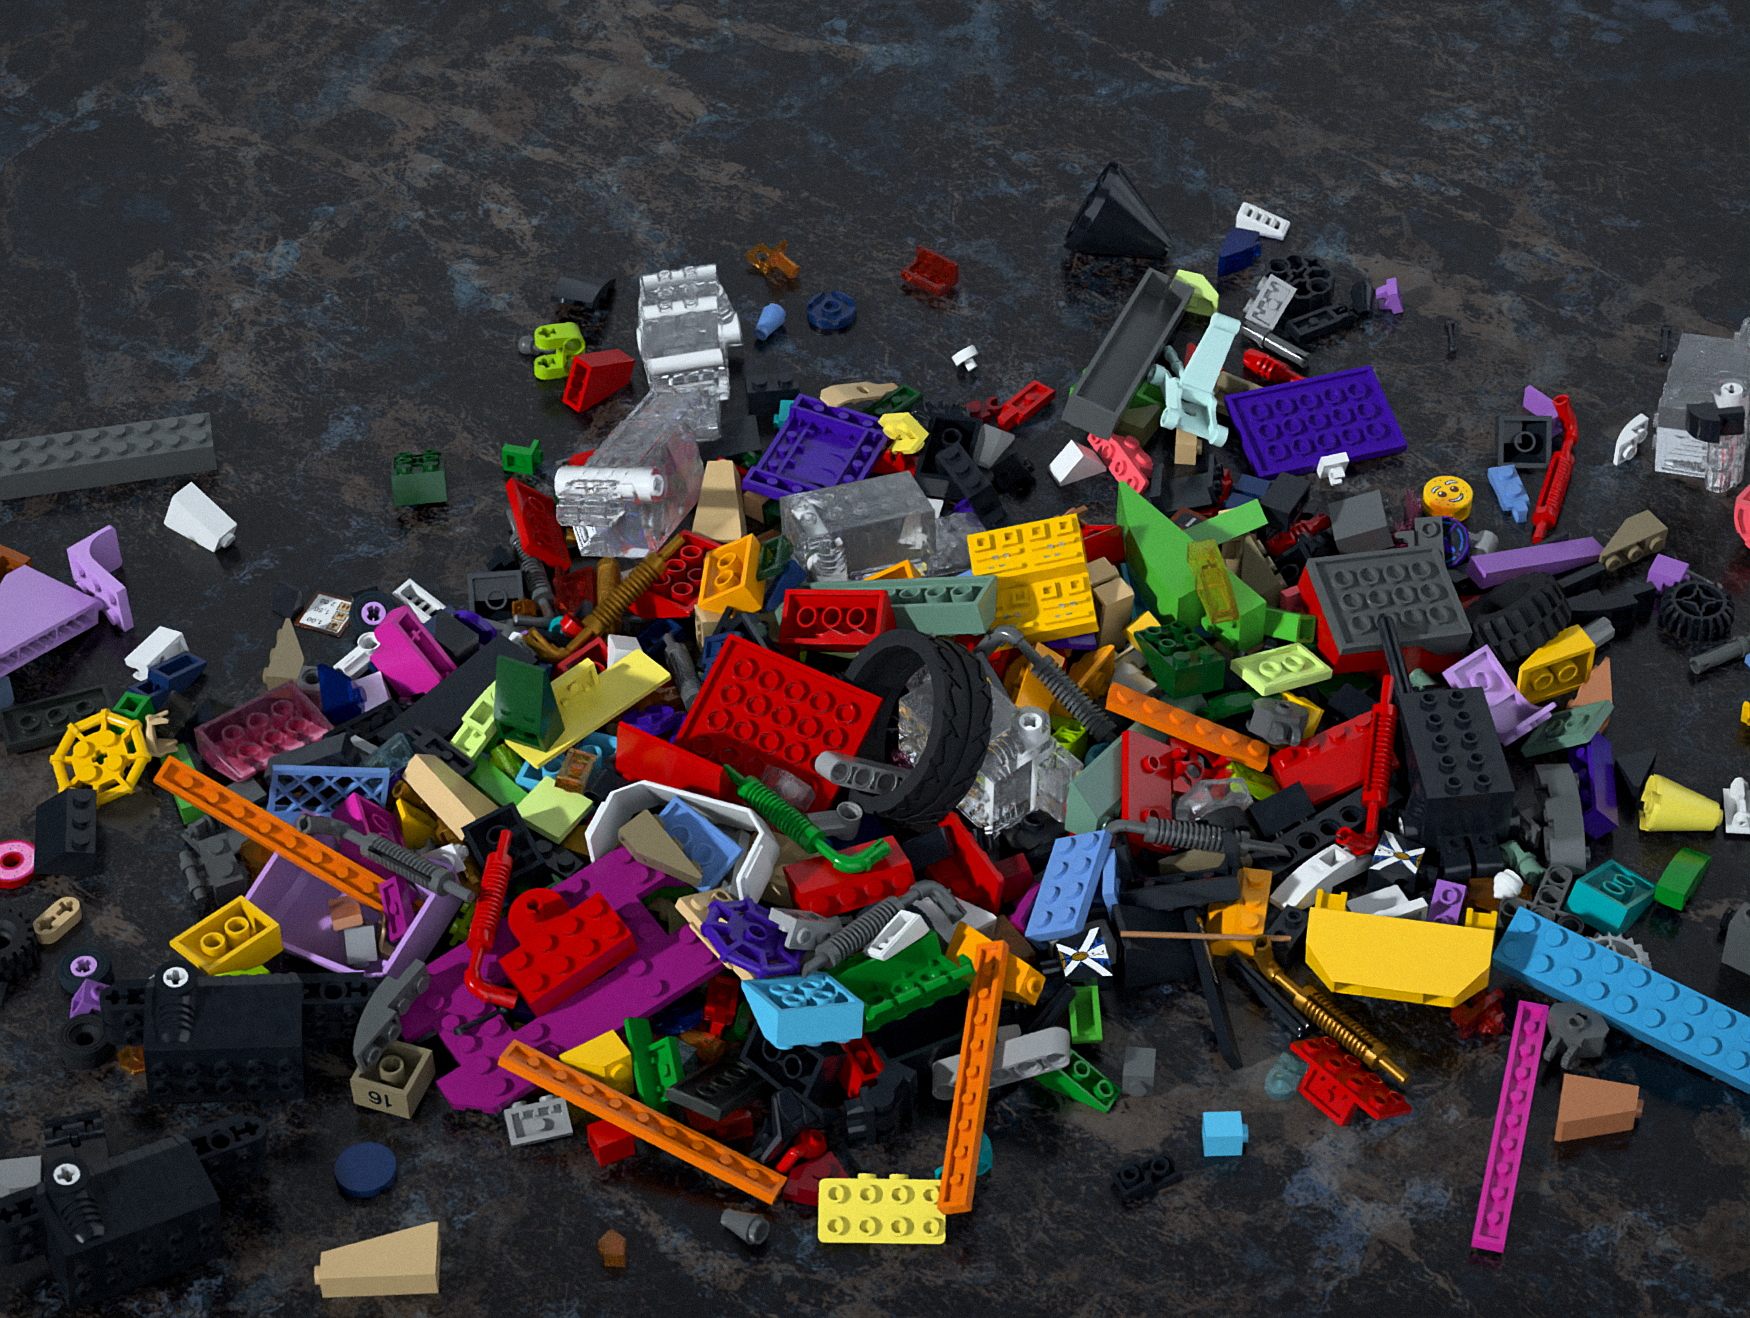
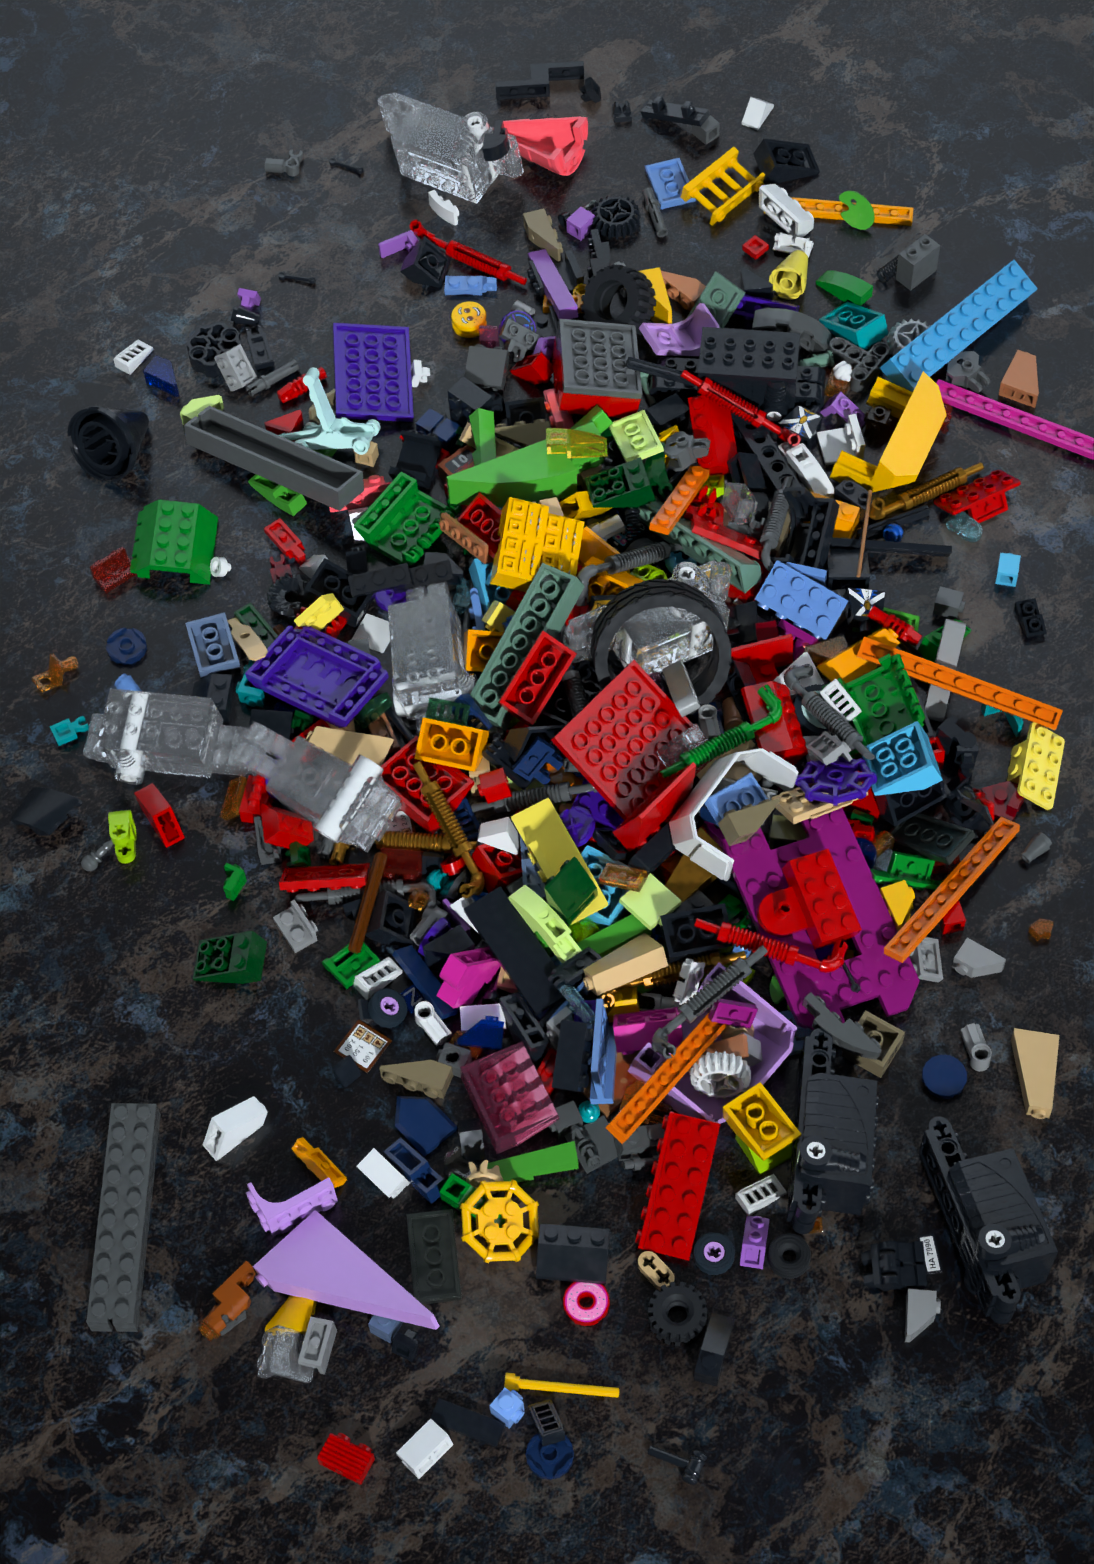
camera: 75 degrees left, 15 degrees up
(156, 900) = (678, 1185): none -> red bracket
(162, 601) = (318, 1162): none -> light orange hinge
(232, 679) = (422, 1123): none -> dark blue tile
(313, 915) = (720, 1075): none -> white gear
(401, 1196) = (976, 1046): none -> light grey piece
(432, 581) = (354, 965): none -> green plate
(474, 523) = (296, 927): none -> light grey bracket
(506, 563) = (367, 902): none -> reddish brown axle
(547, 1175) = (977, 960): none -> light grey slope
(687, 633) = (494, 785): none -> red brick
(841, 363) = (212, 644): none -> sand blue brick
(987, 311) = (175, 539): none -> green slope
(1054, 991) = (903, 630): none -> red hinge
(1080, 479) = (403, 521): none -> green slope
(1246, 995) = (893, 532): none -> blue plate
(1634, 290) = (291, 166): none -> dark grey bar
(1714, 767) = (755, 247): none -> red plate

